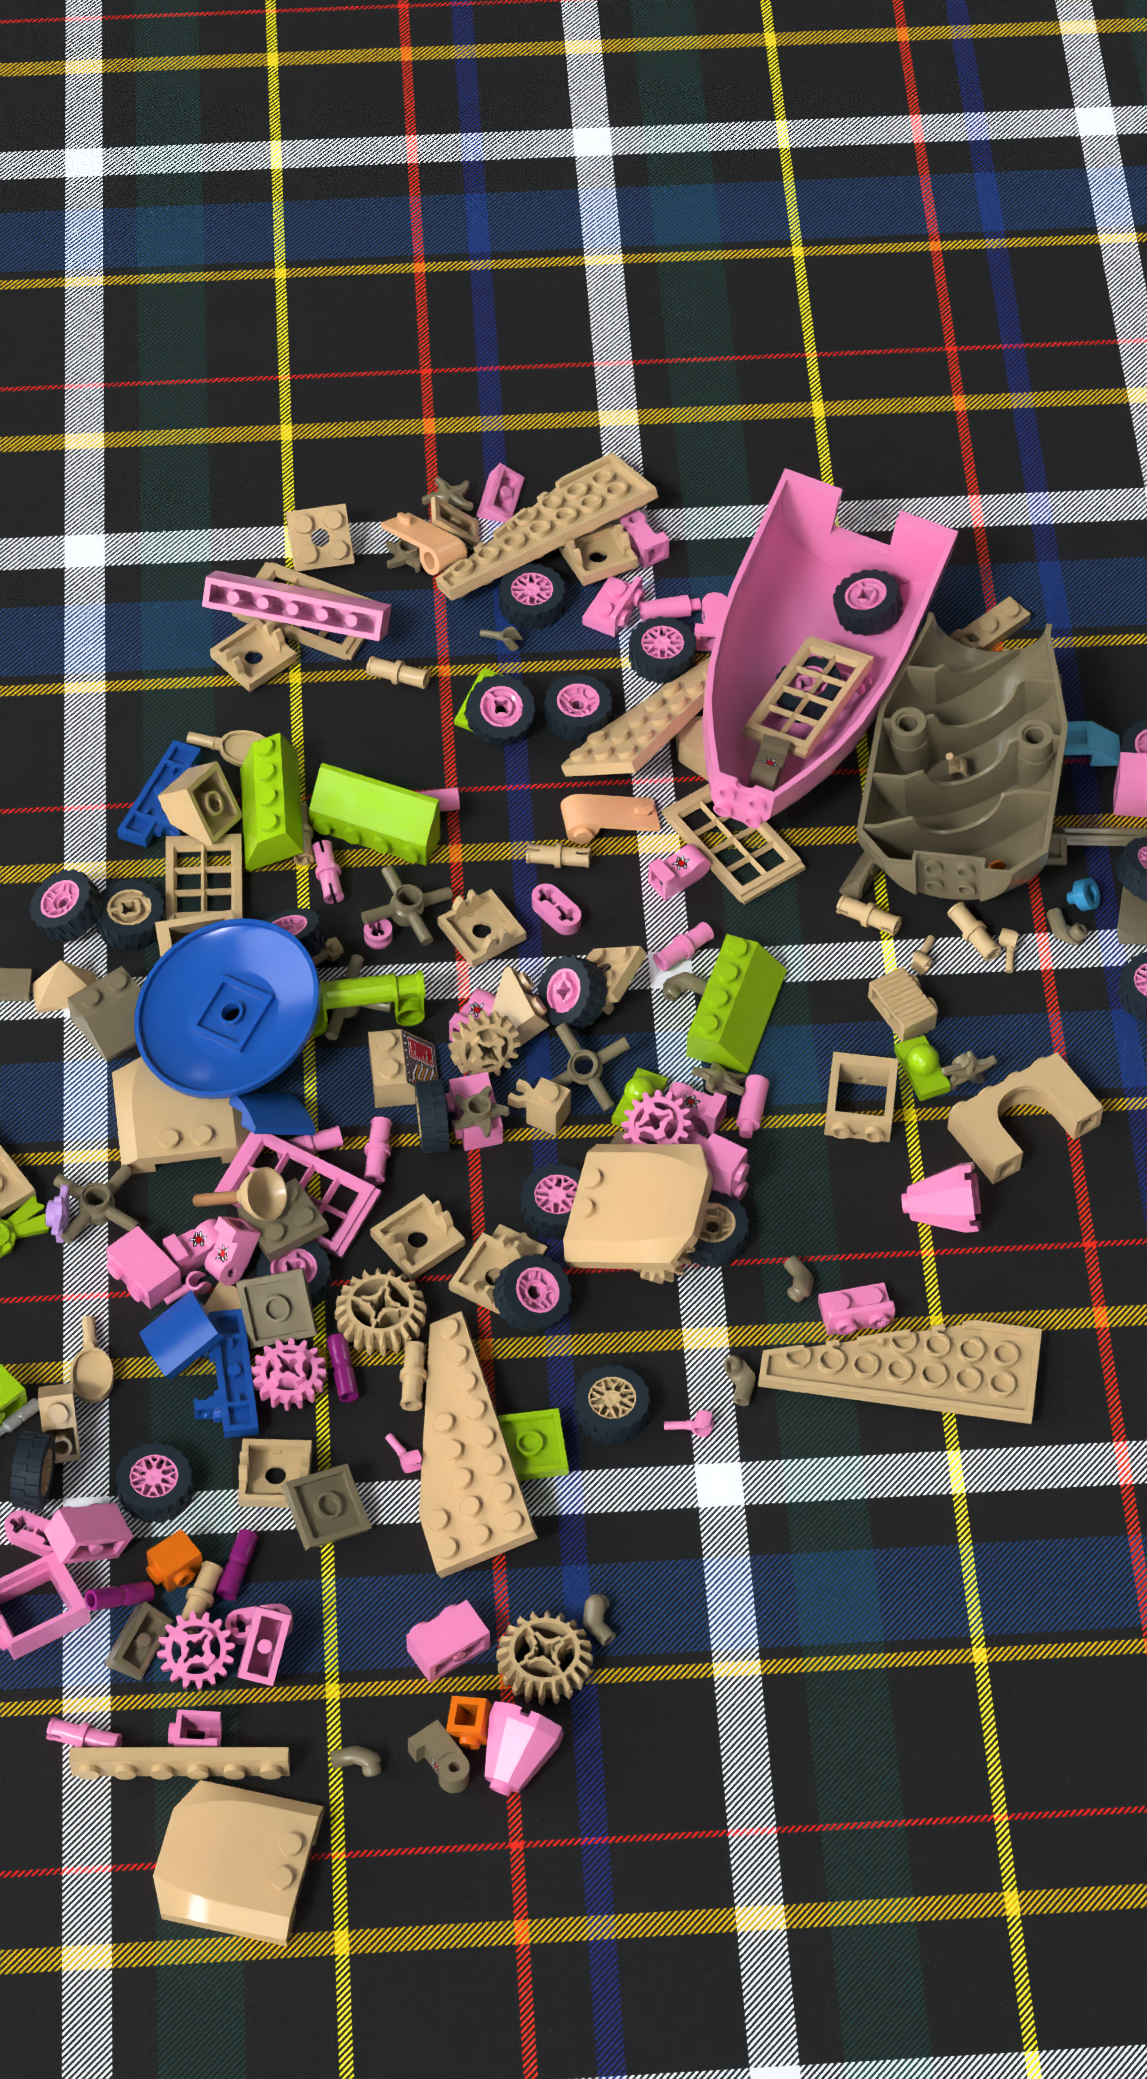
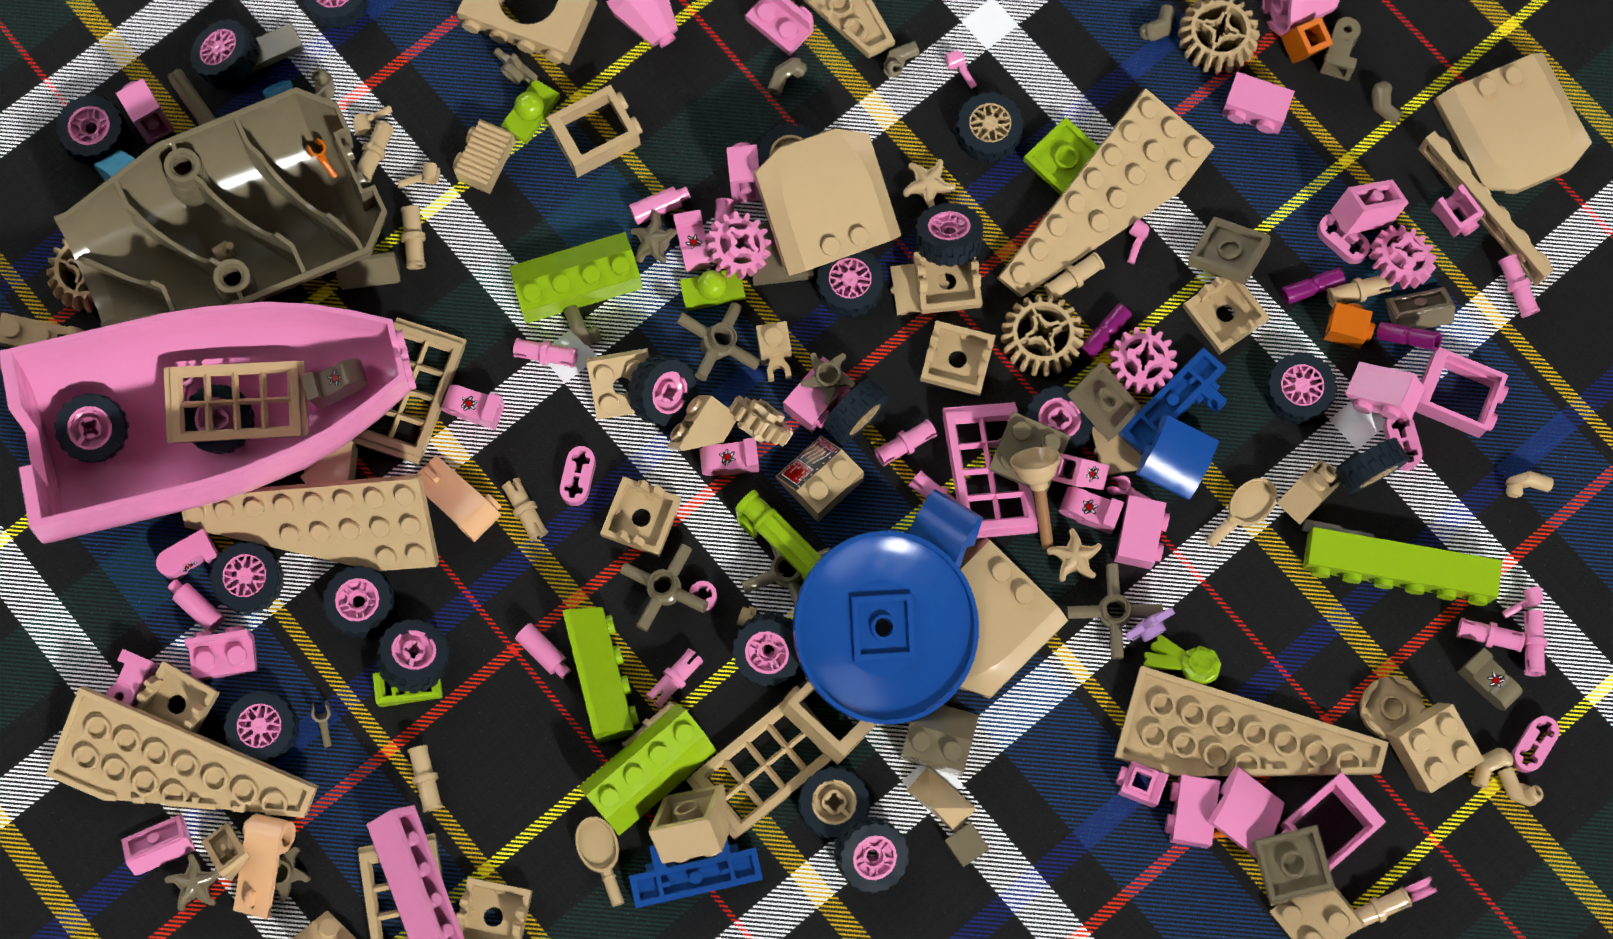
camera: 125 degrees left, 20 degrees up
(169, 1209) = (1075, 556): none -> tan animal
(598, 1321) = (928, 182): none -> tan animal

